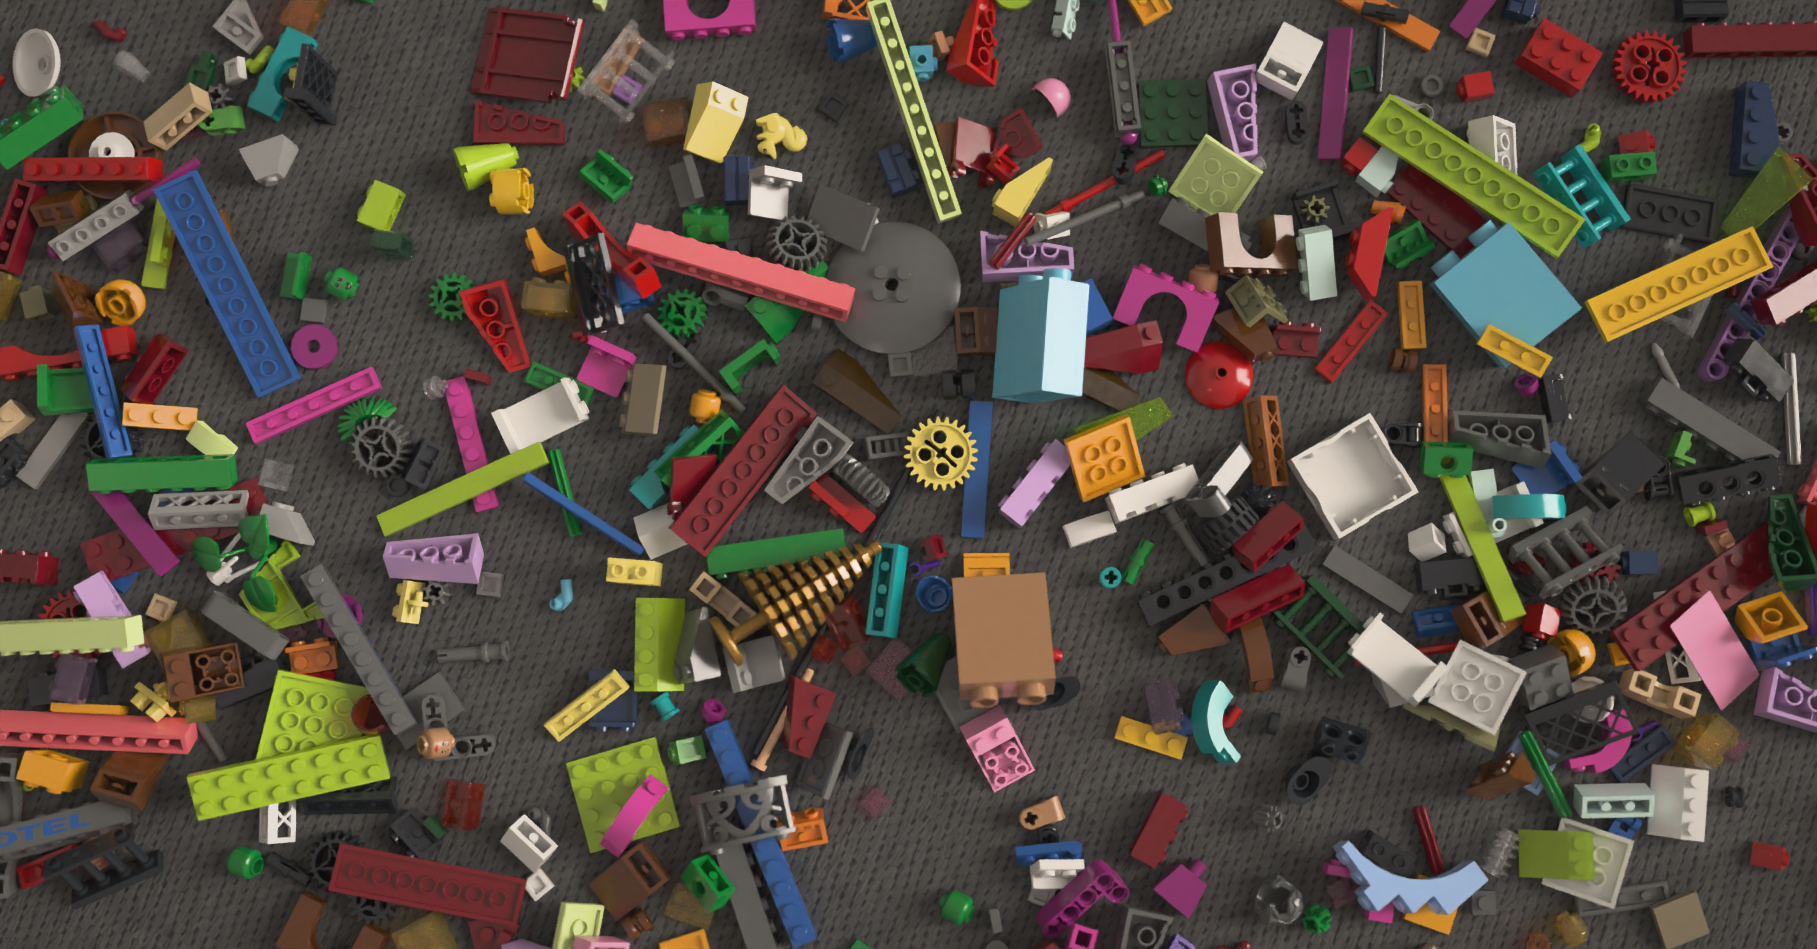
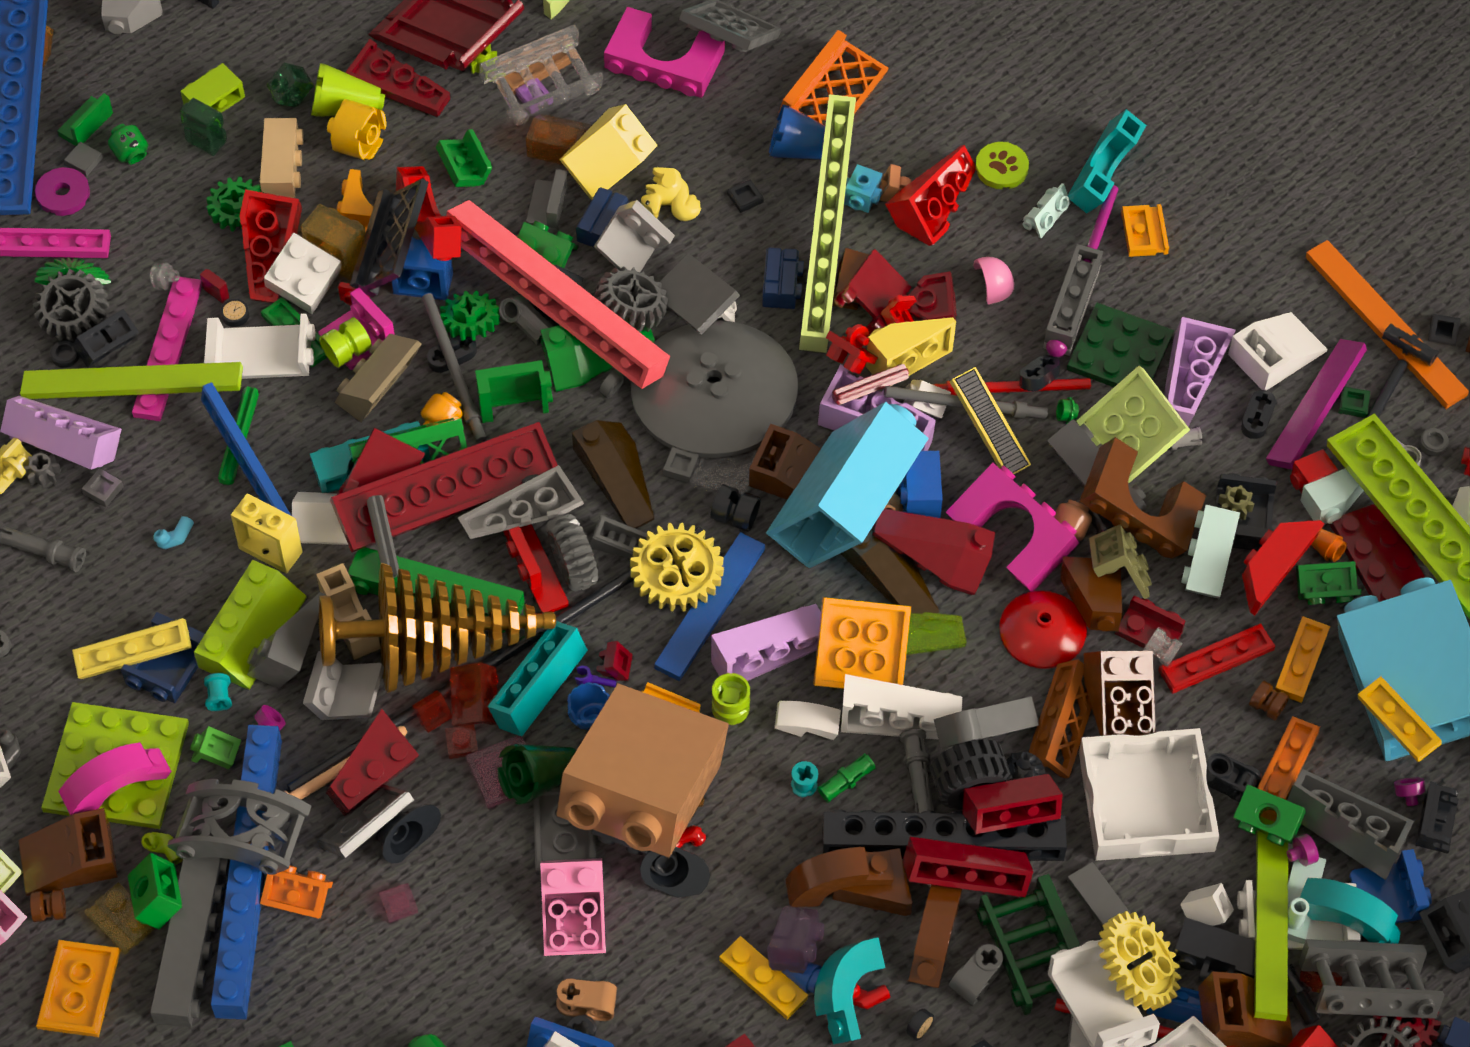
camera: 20 degrees right, 25 degrees down
(437, 173) = (289, 85): none -> clear green brick
(465, 240) = (281, 156): none -> tan brick
(504, 390) = (234, 312): none -> tile
(540, 340) = (302, 273): none -> white brick
(604, 384) = (347, 341): none -> lime wheel
(688, 838) = (158, 843): none -> lime arm
(722, 538) = (382, 532): none -> dark grey axle
(983, 212) = (841, 346): none -> red hips
(1030, 541) = (731, 698): none -> lime wheel
(1110, 227) = (989, 421): none -> tile
(1172, 646) = (836, 870): none -> reddish brown arch
(1299, 405) = (1121, 691): none -> reddish brown slope
(1314, 356) = (1160, 640): none -> clear wheel
(1406, 616) = (1152, 981): none -> light yellow gear
(1479, 474) = (1303, 850): none -> magenta tile

